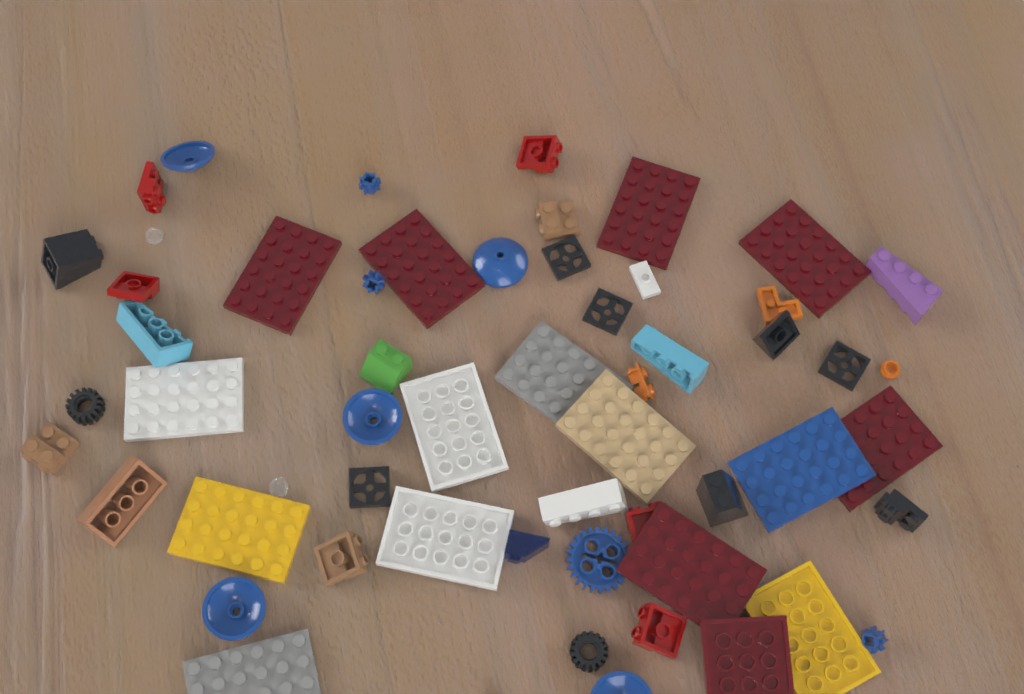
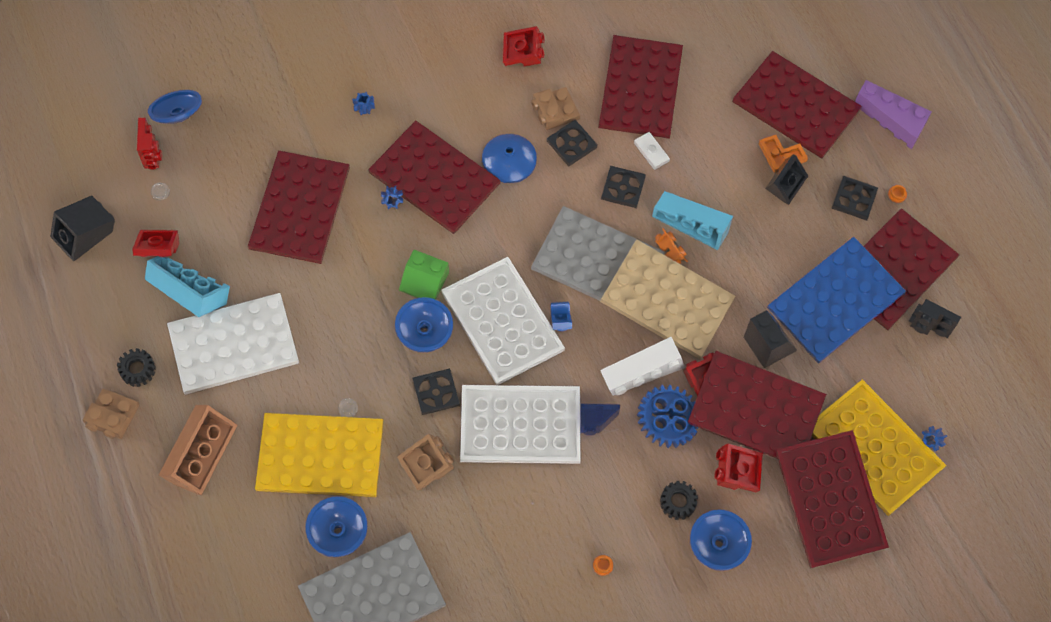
camera: 15 degrees left, 0 degrees up
(512, 433) = (561, 316): none -> blue bracket

